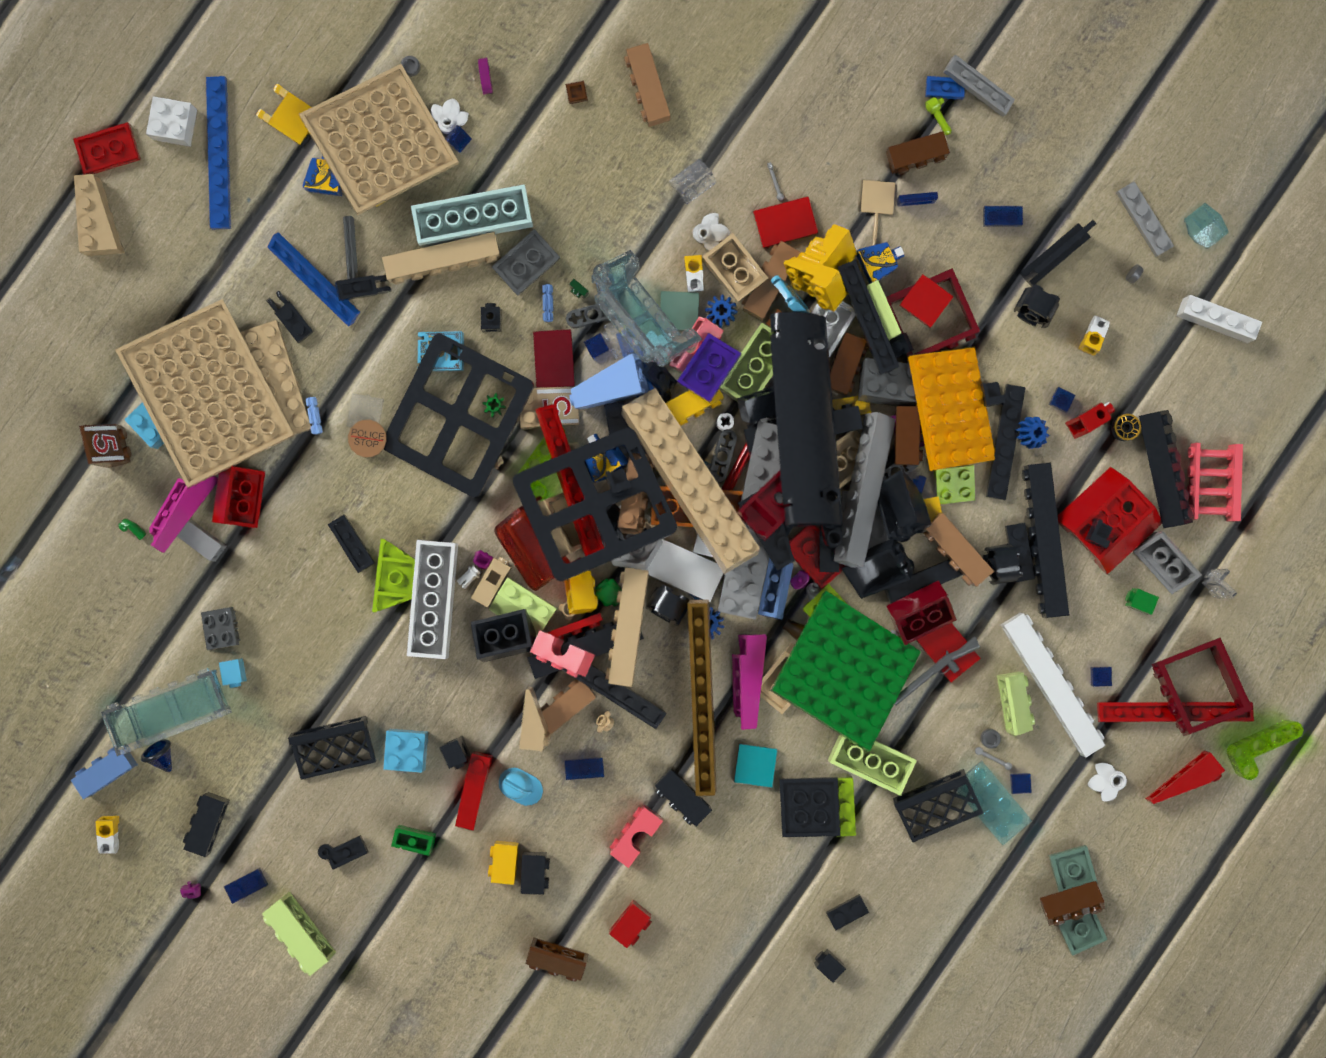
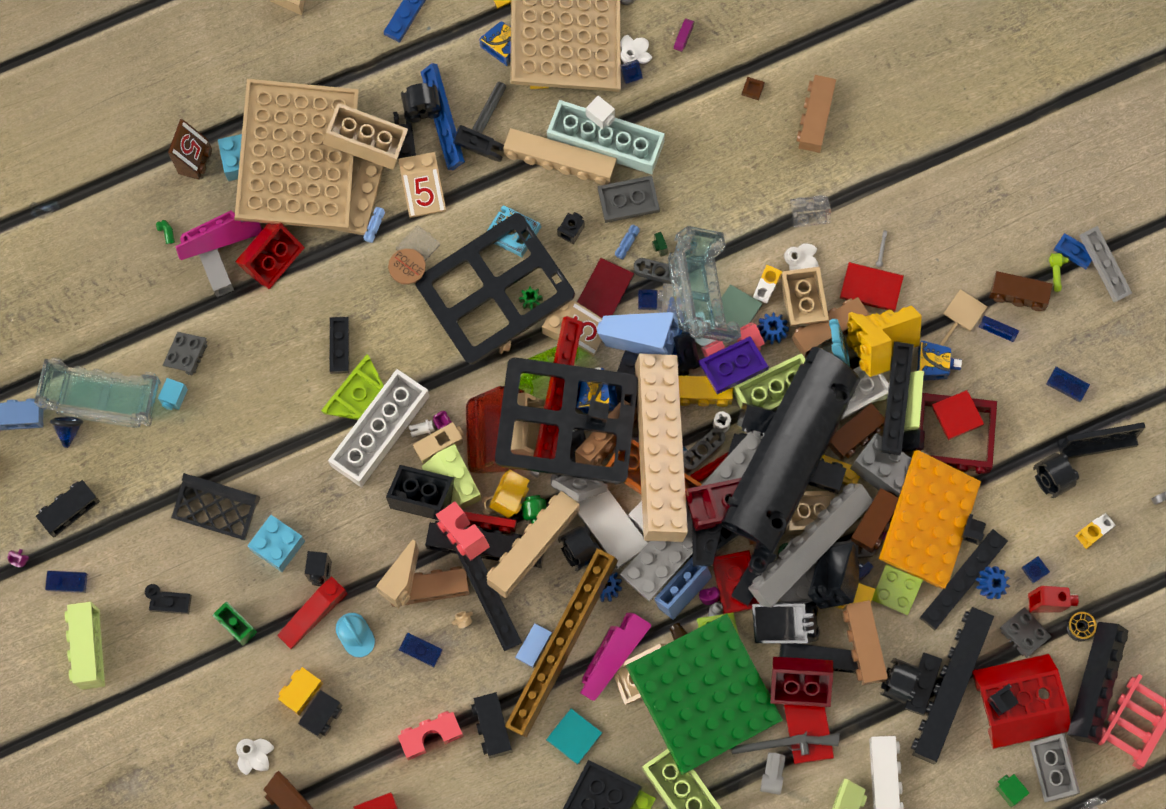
camera: 35 degrees right, 15 degrees down
(256, 342) = (365, 136): none -> tan brick
(286, 279) = (421, 102): none -> black brick
(334, 354) = (422, 185): none -> tan slope
(456, 198) = (600, 112): none -> white brick
(500, 938) = (256, 757): none -> white plate
(676, 708) = (533, 645): none -> light blue tile
(940, 706) = (773, 779): none -> light grey piece
(1081, 459) = (1025, 632): none -> dark grey hinge

